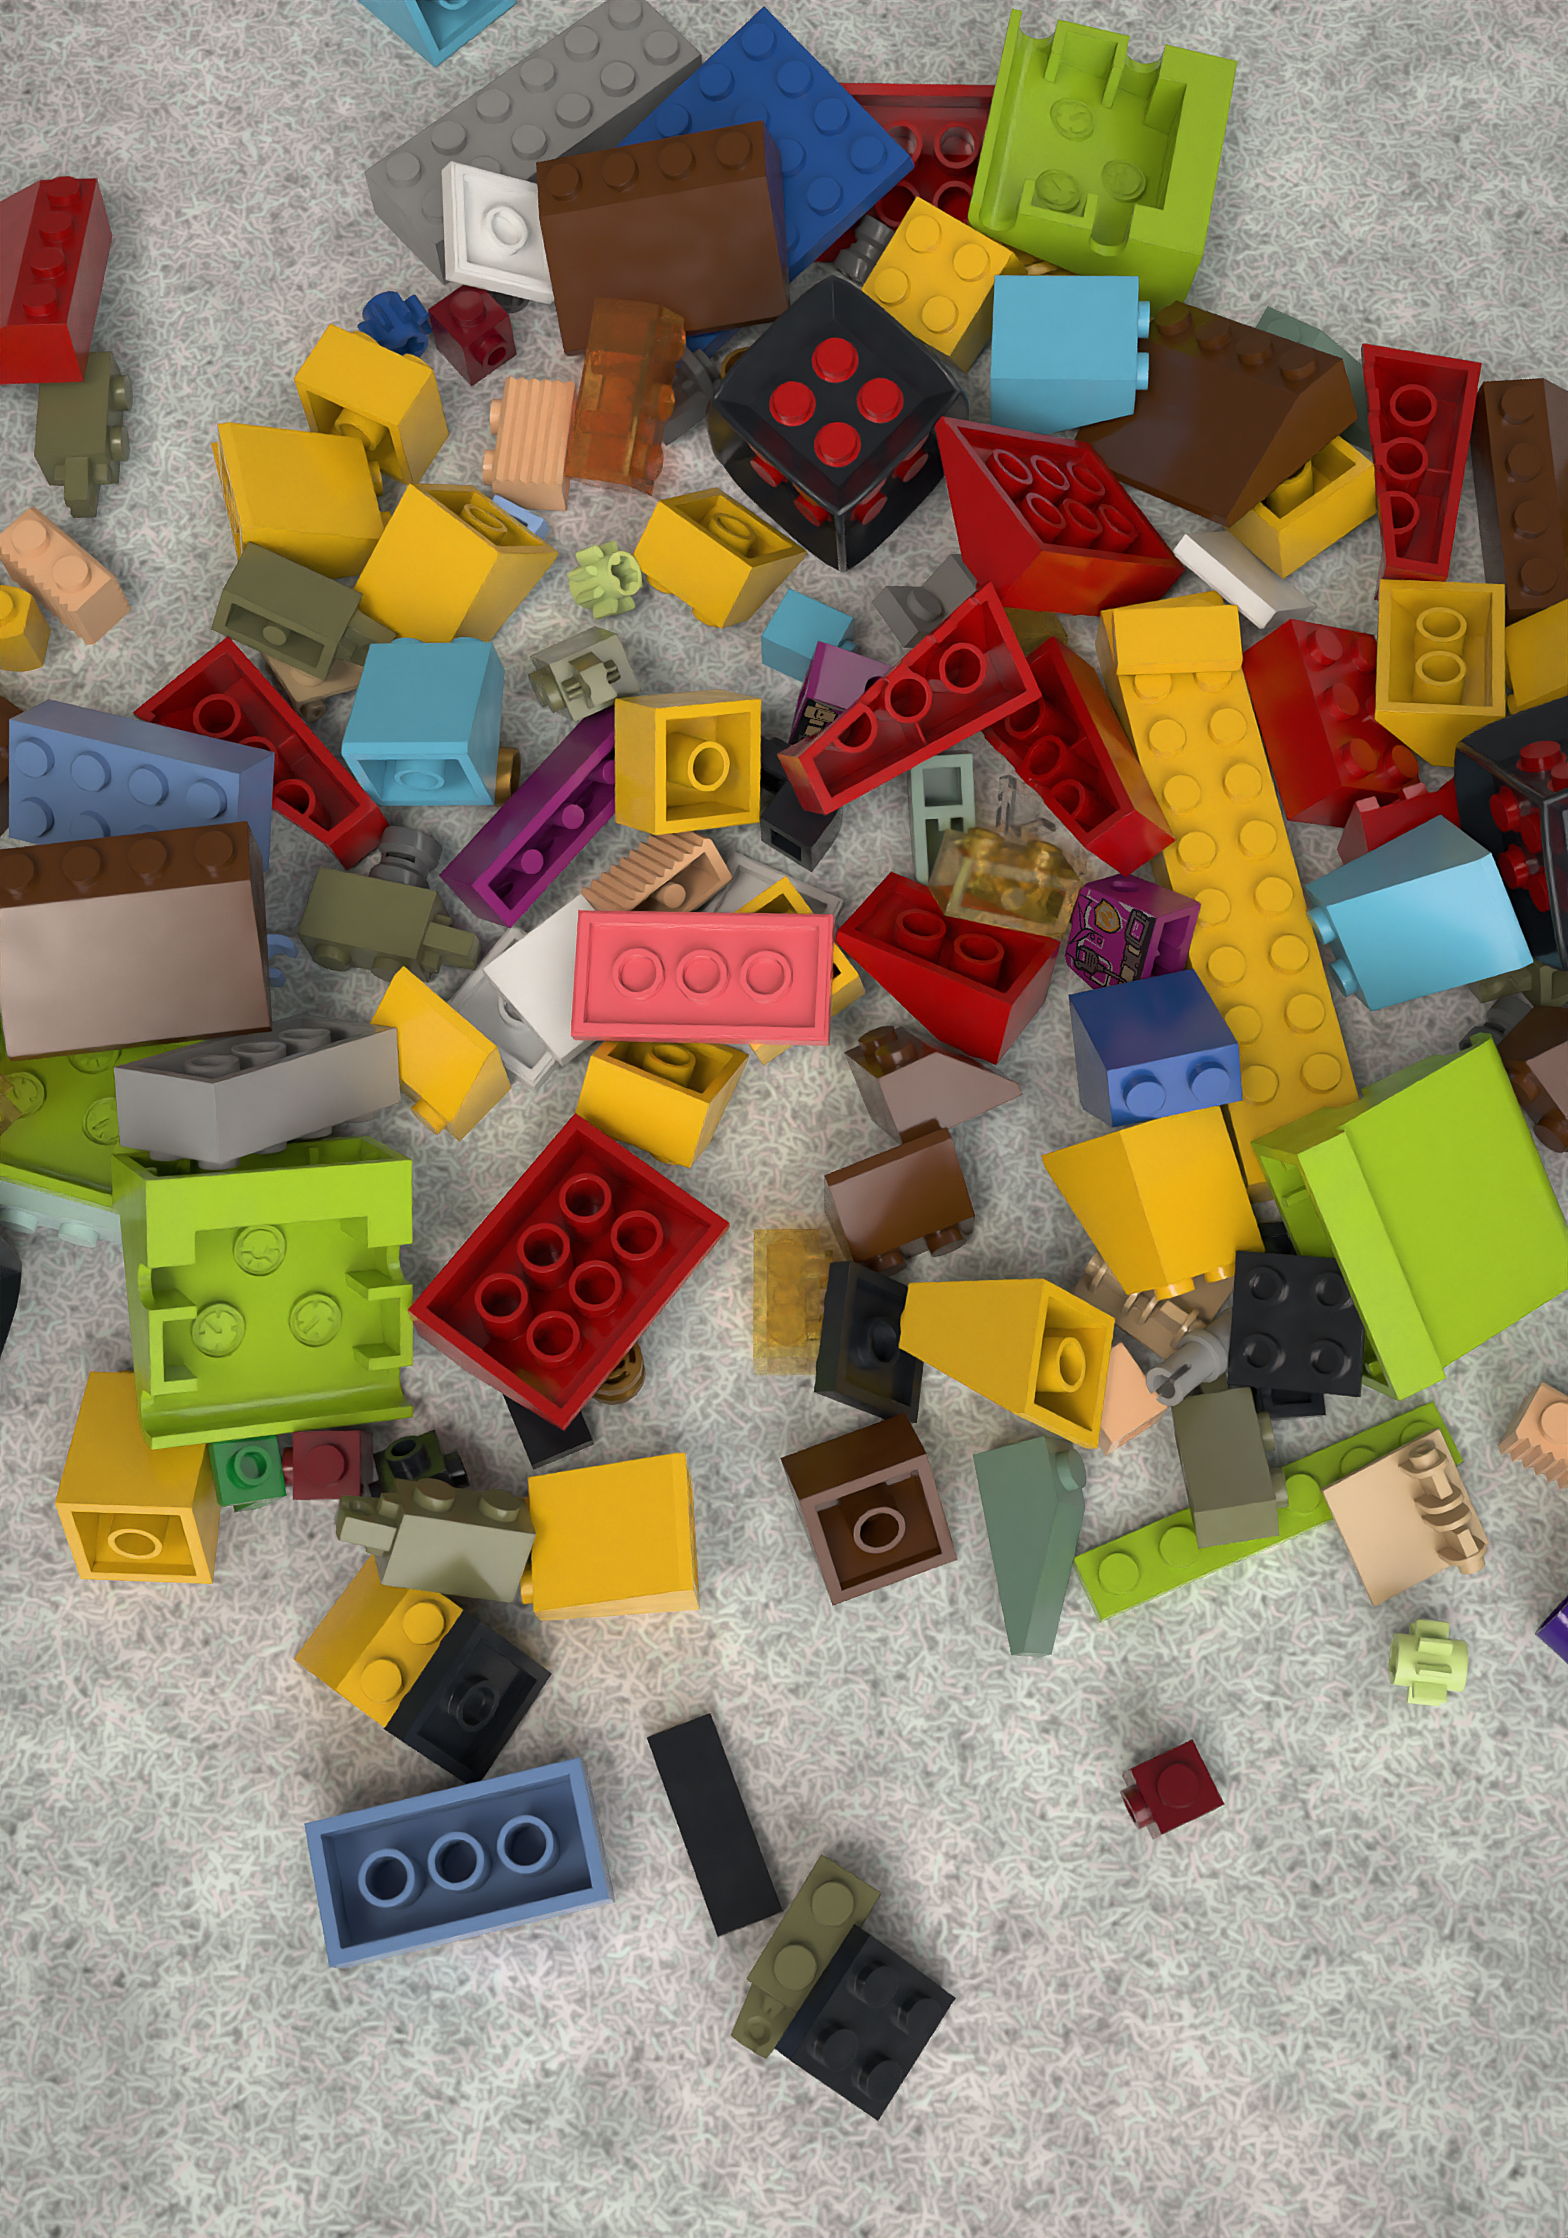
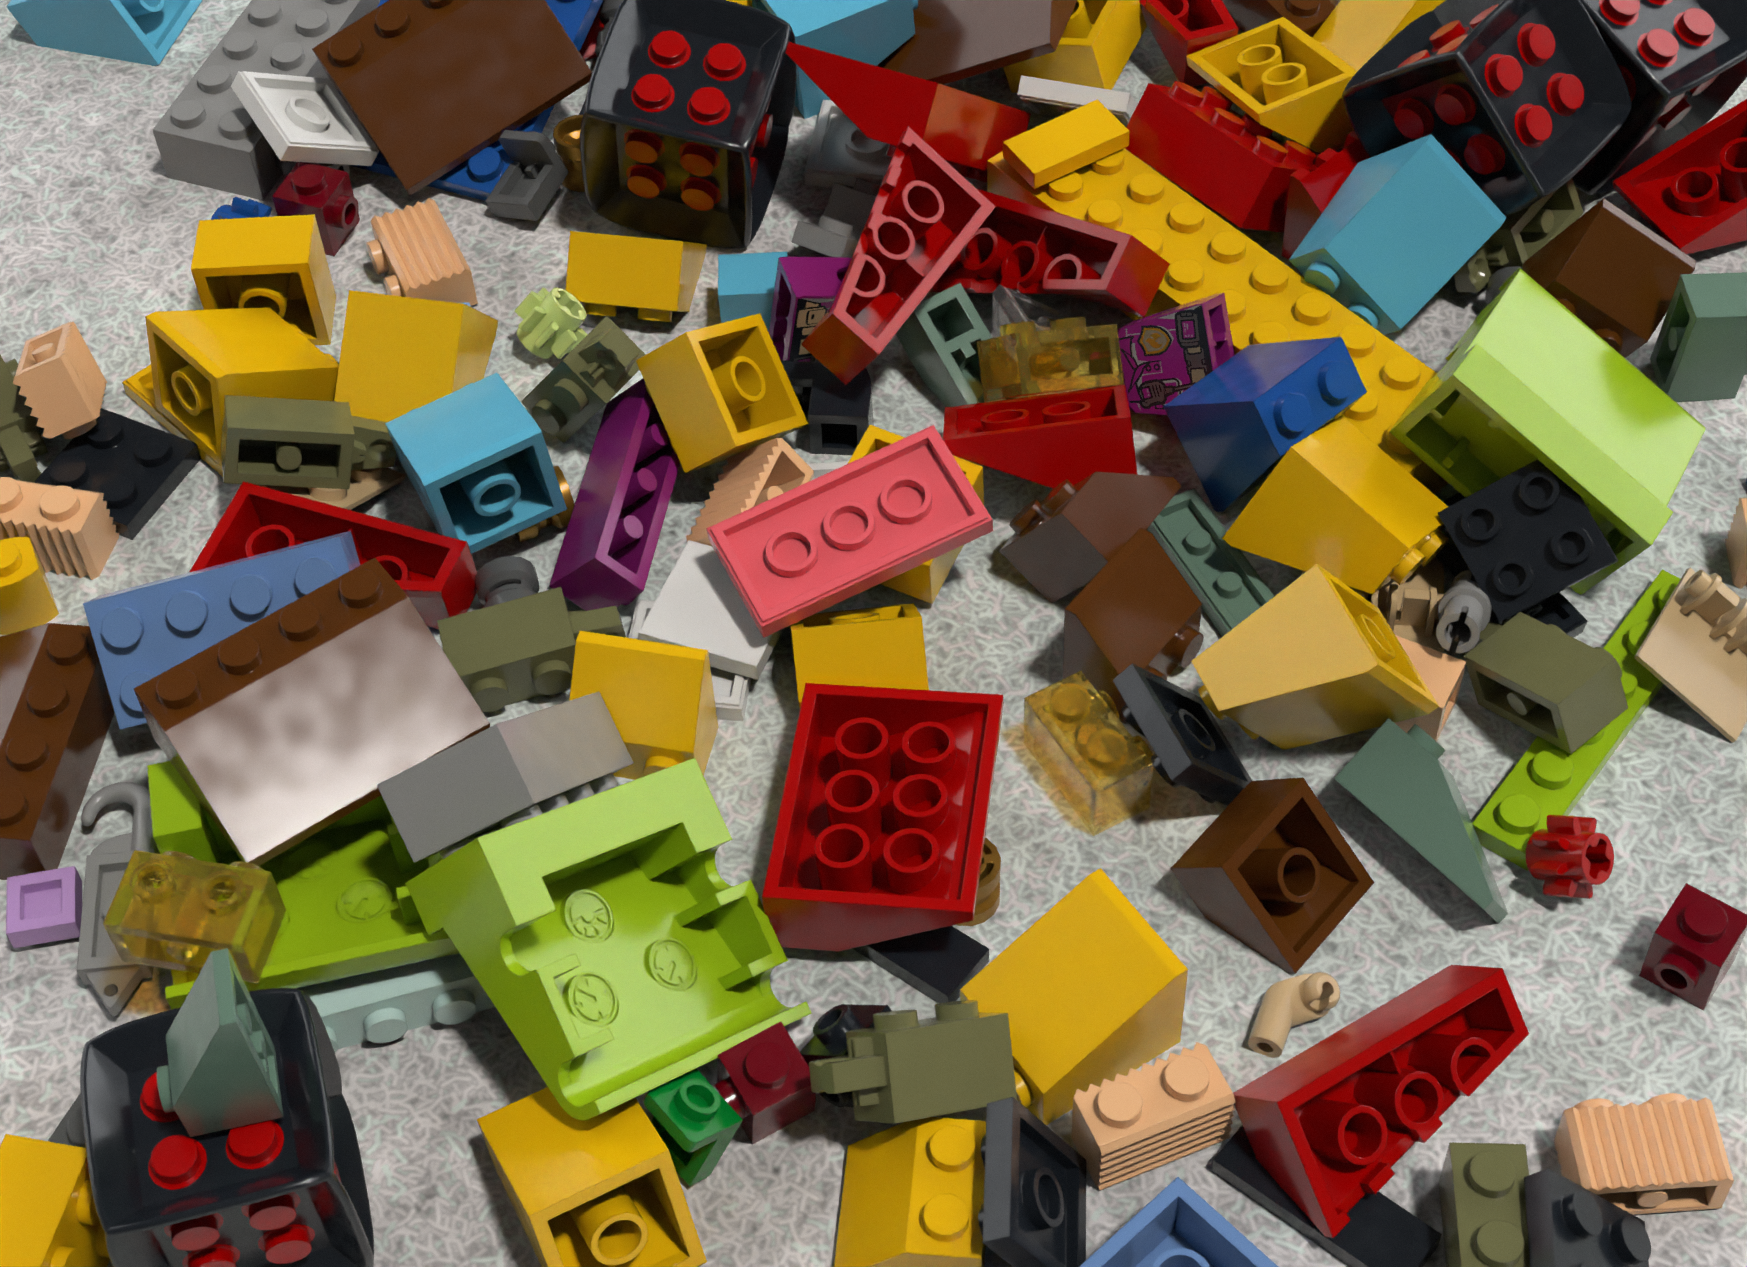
camera: 30 degrees left, 20 degrees down
(143, 429) = (61, 382): none -> light nougat brick
(158, 541) = (126, 462): none -> black plate
(615, 1675) = (1152, 1116): none -> light nougat brick
(625, 396) = (489, 184): clear orange brick -> none
(803, 1633) = (1289, 1005): none -> tan arm
(812, 1760) = (1366, 1094): none -> red wedge
(990, 1946) = (1646, 1154): none -> light nougat brick
(1028, 1197) = (1210, 566): none -> sand green tile
(1128, 1642) = (1569, 856): none -> red gear

